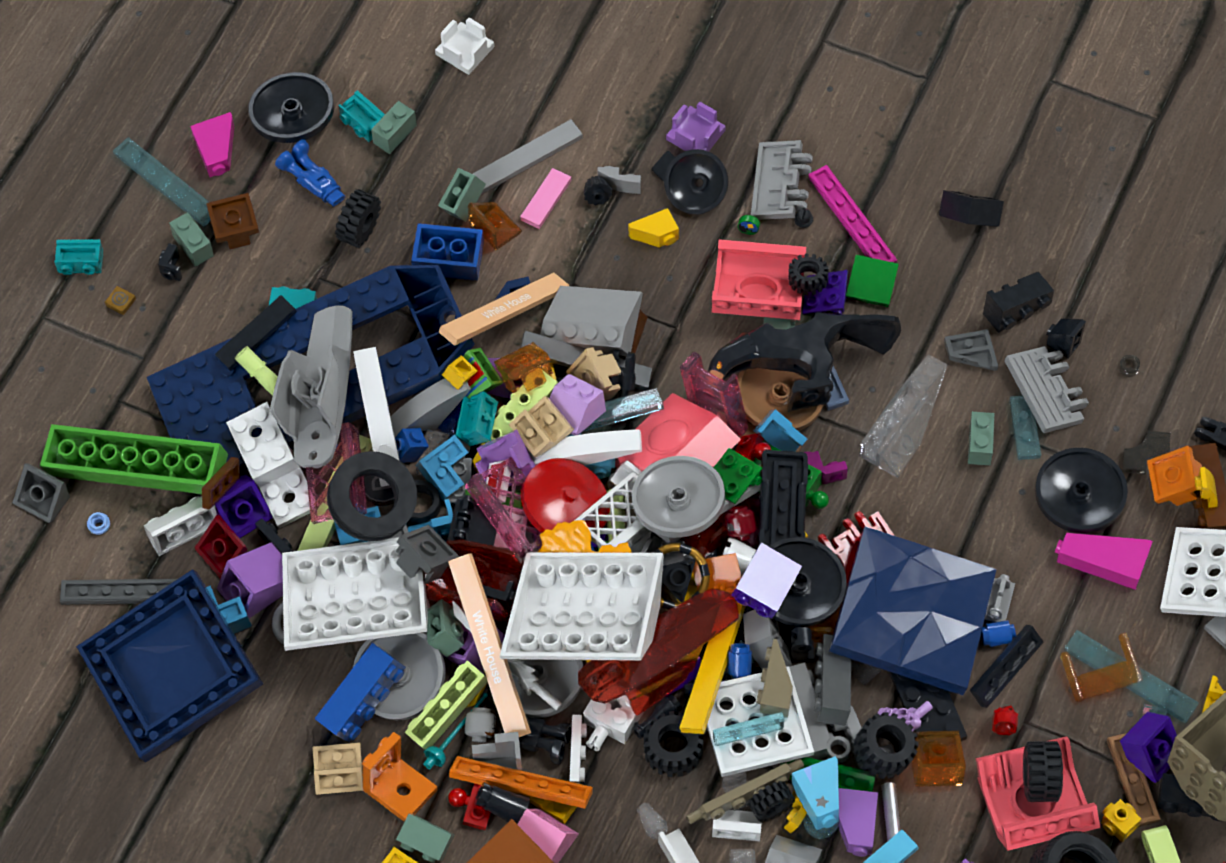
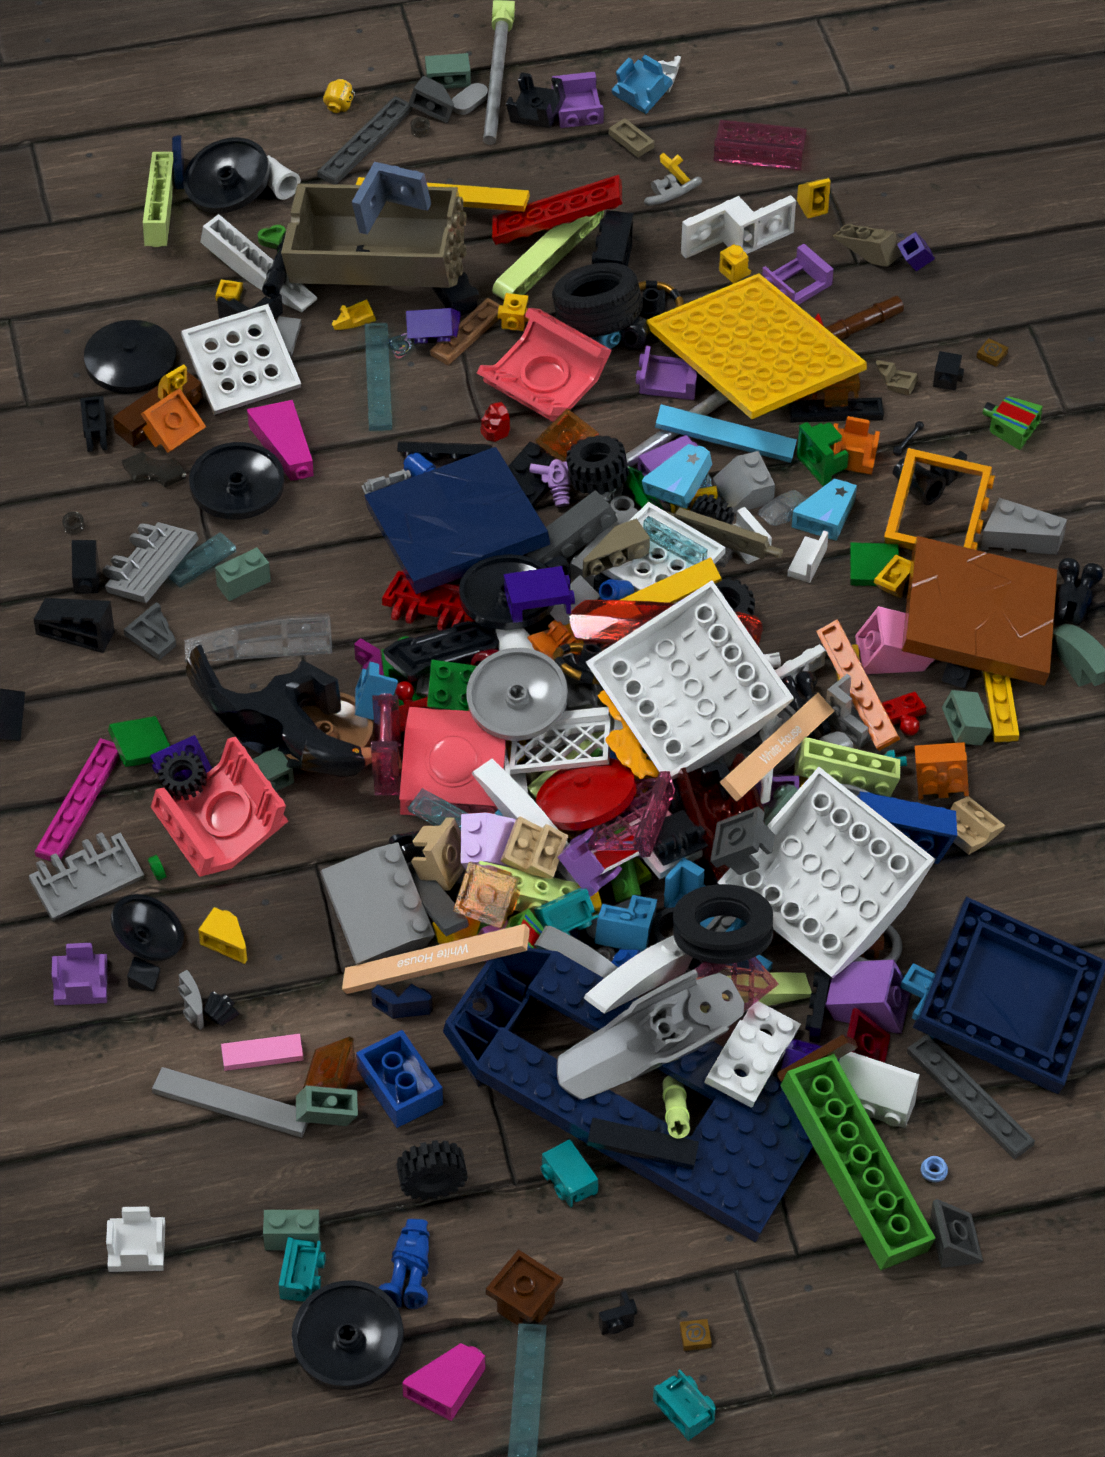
camera: 130 degrees left, 10 degrees down
(191, 239) = (576, 1314): sand green brick -> none
(459, 372) = (542, 935): yellow slope -> none
(501, 802) = (887, 680): black plant -> none
(651, 821) = (800, 588): clear cone -> none
(803, 218) = (110, 830): black piece -> none
(1042, 771) = (528, 357): black tyre -> none
(1105, 678) = (397, 383): clear orange plate -> none

